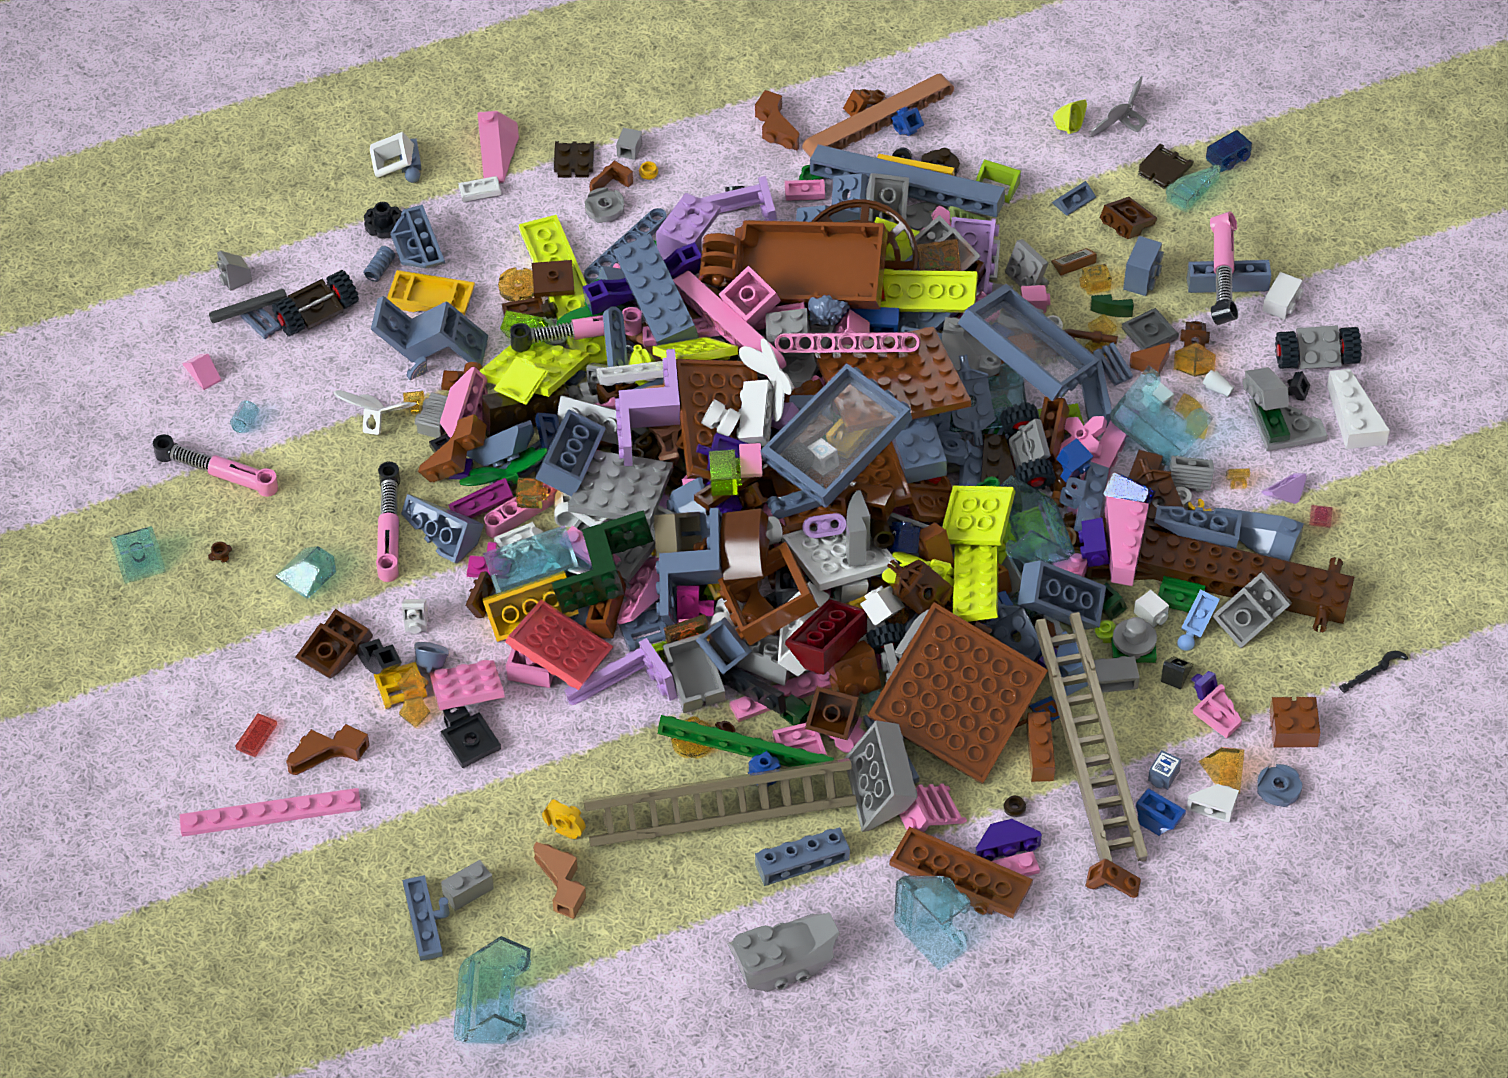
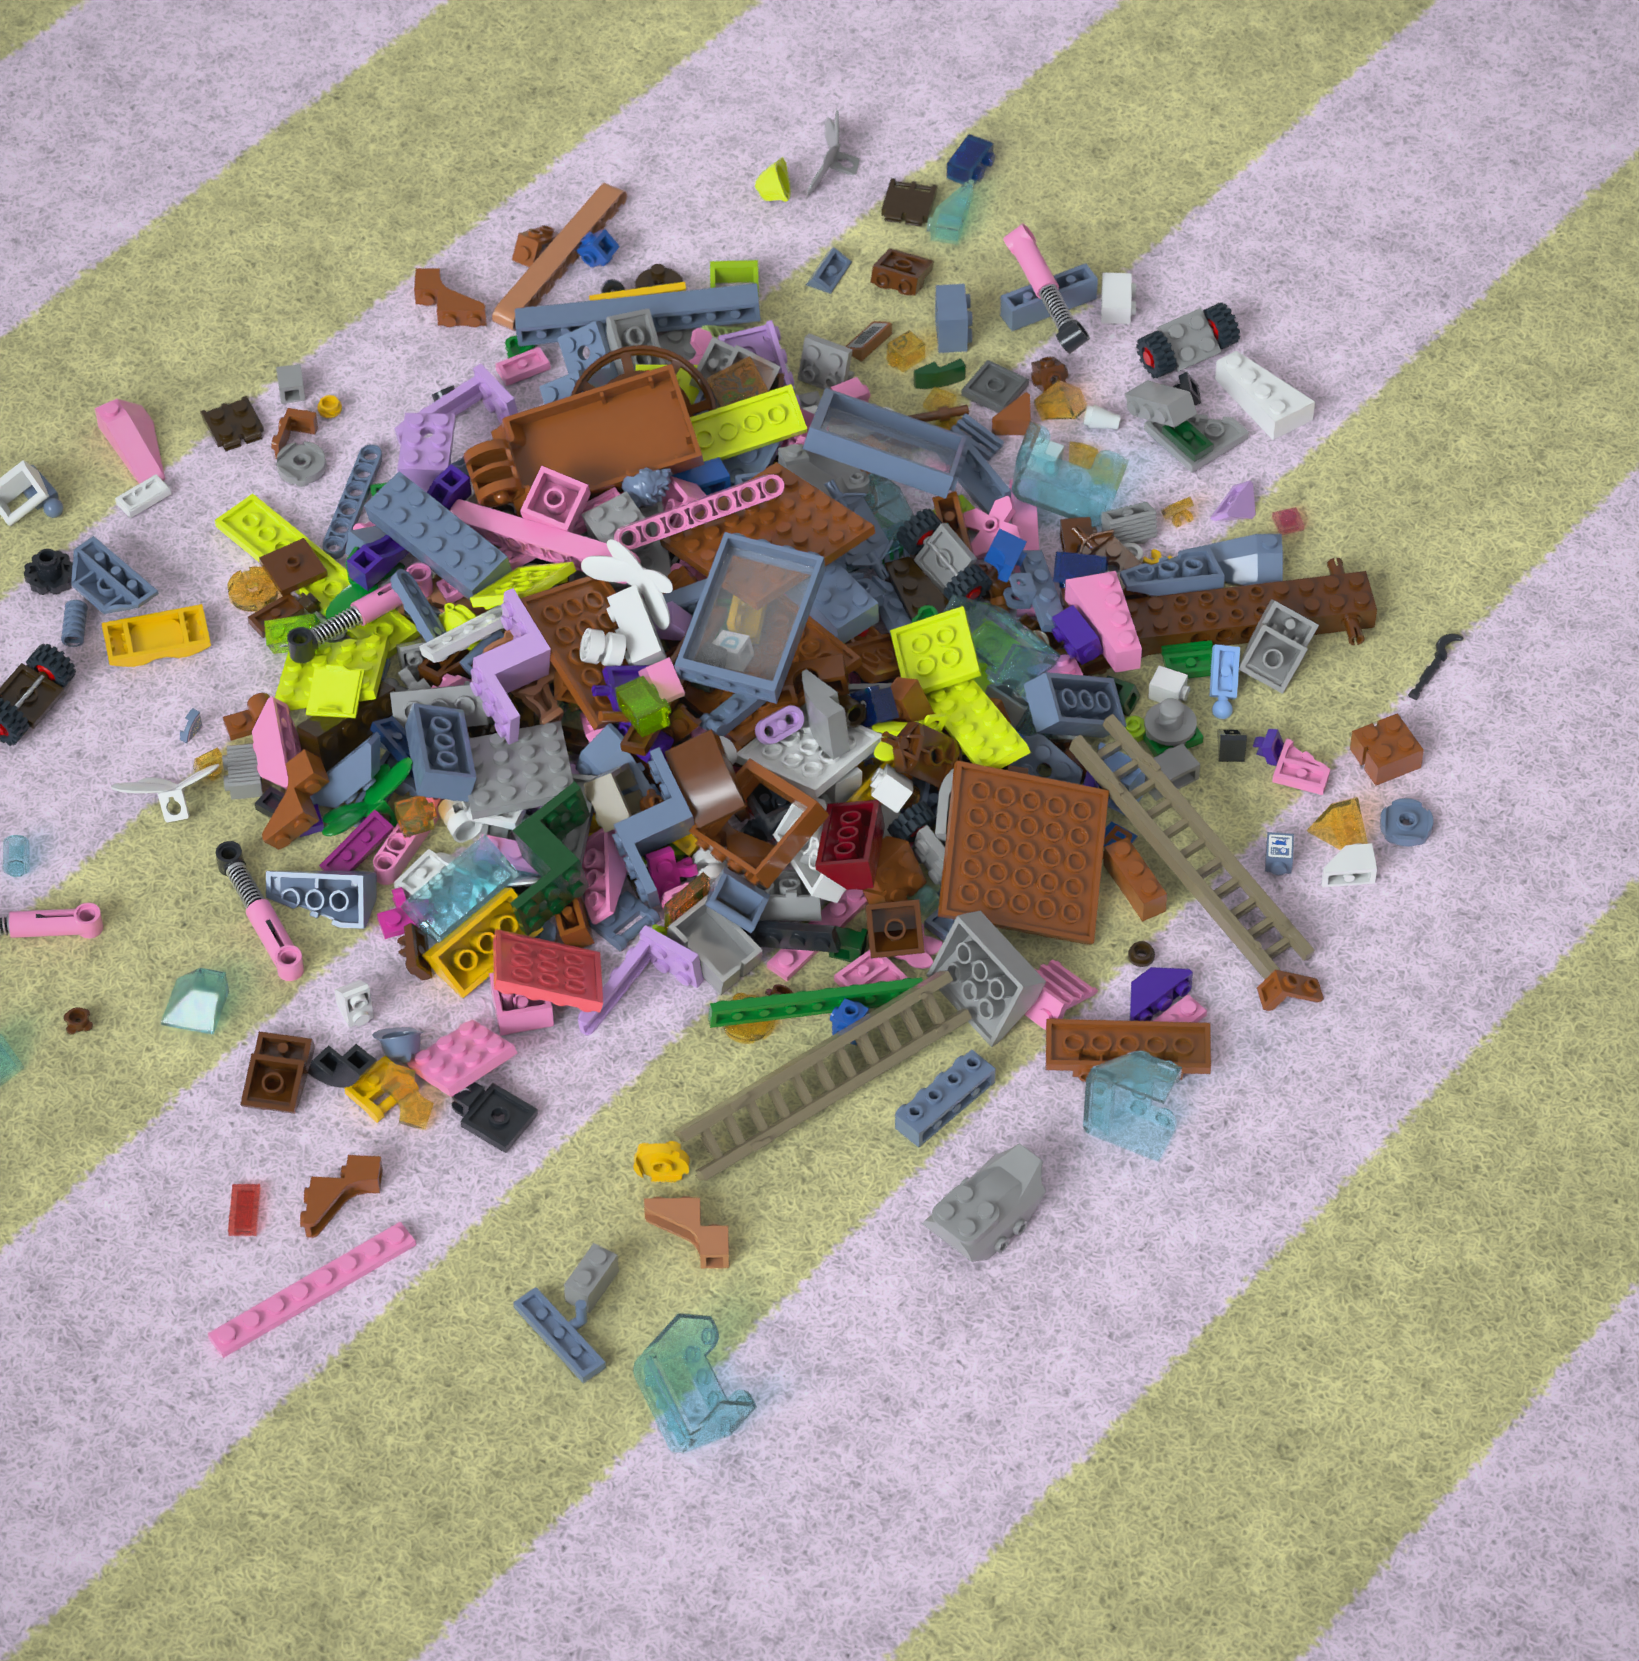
camera: 25 degrees left, 0 degrees up
(429, 331) = (186, 678): sand blue bracket -> none
(1158, 813) = (1299, 900): blue slope -> none

